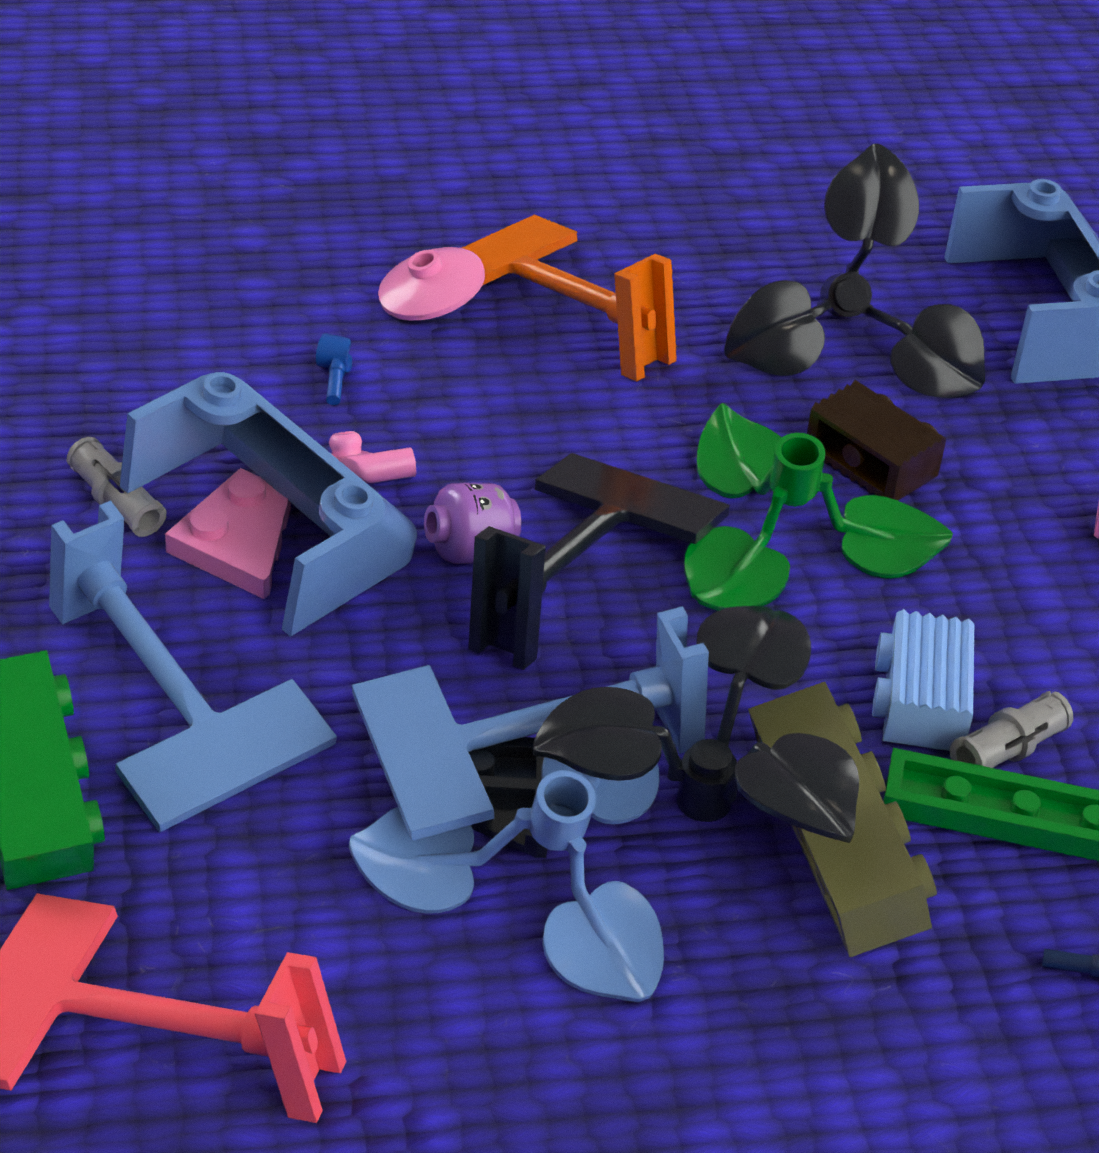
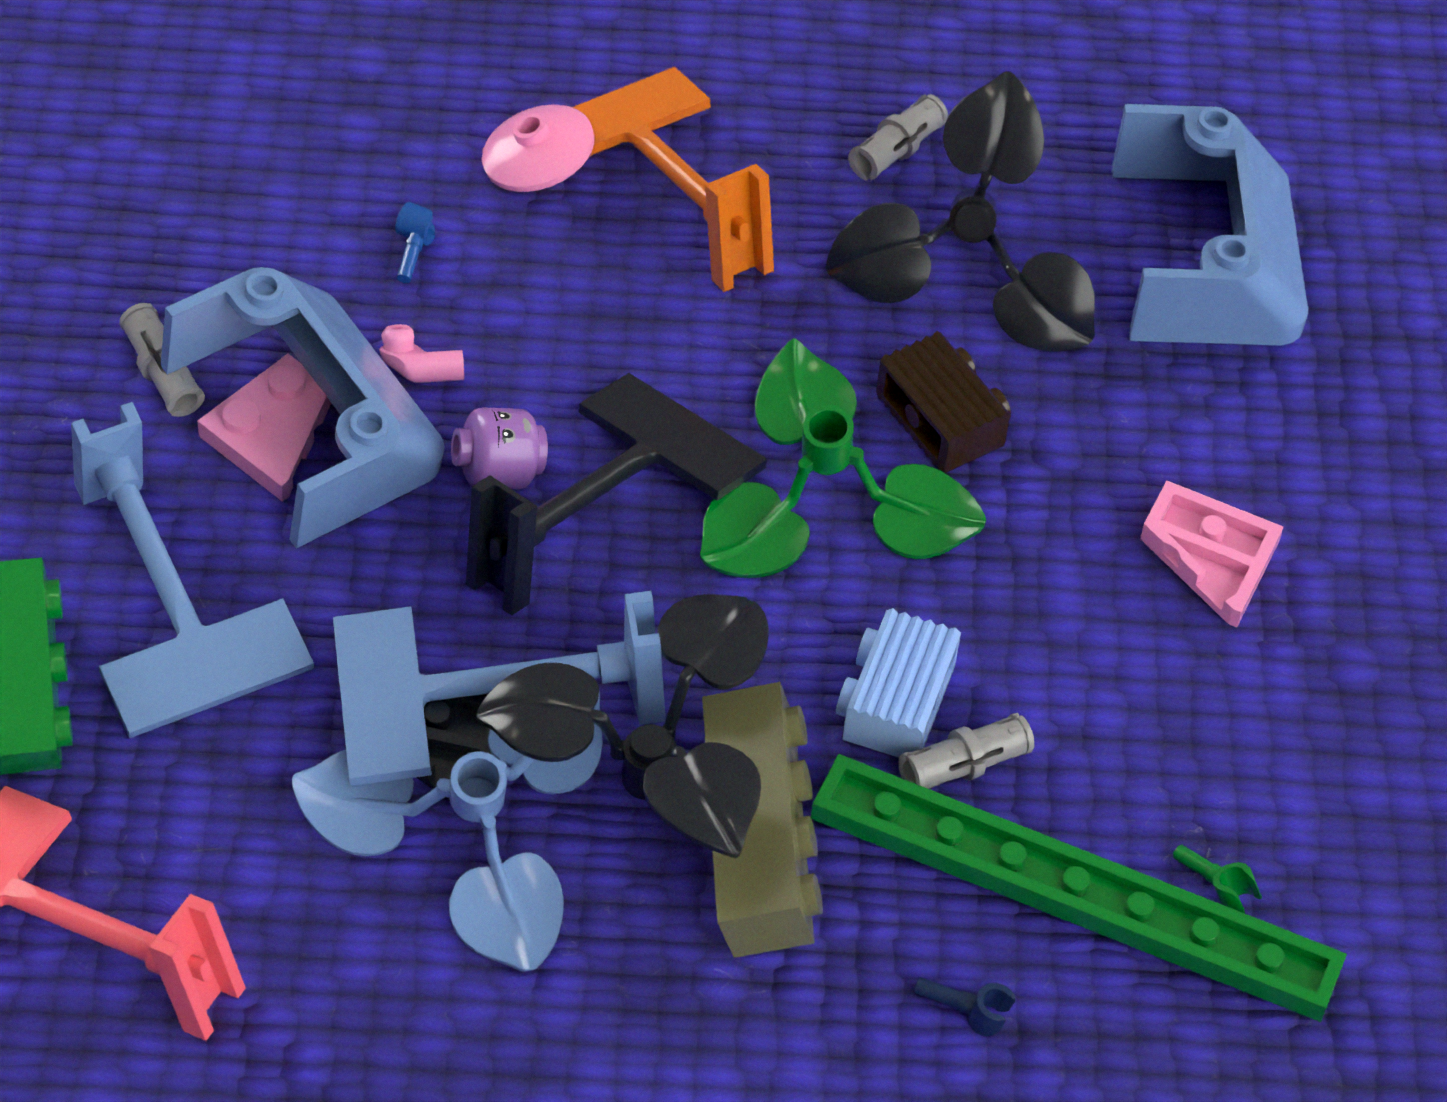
camera: 10 degrees right, 10 degrees up
(753, 246) = (898, 137): none -> light grey pin

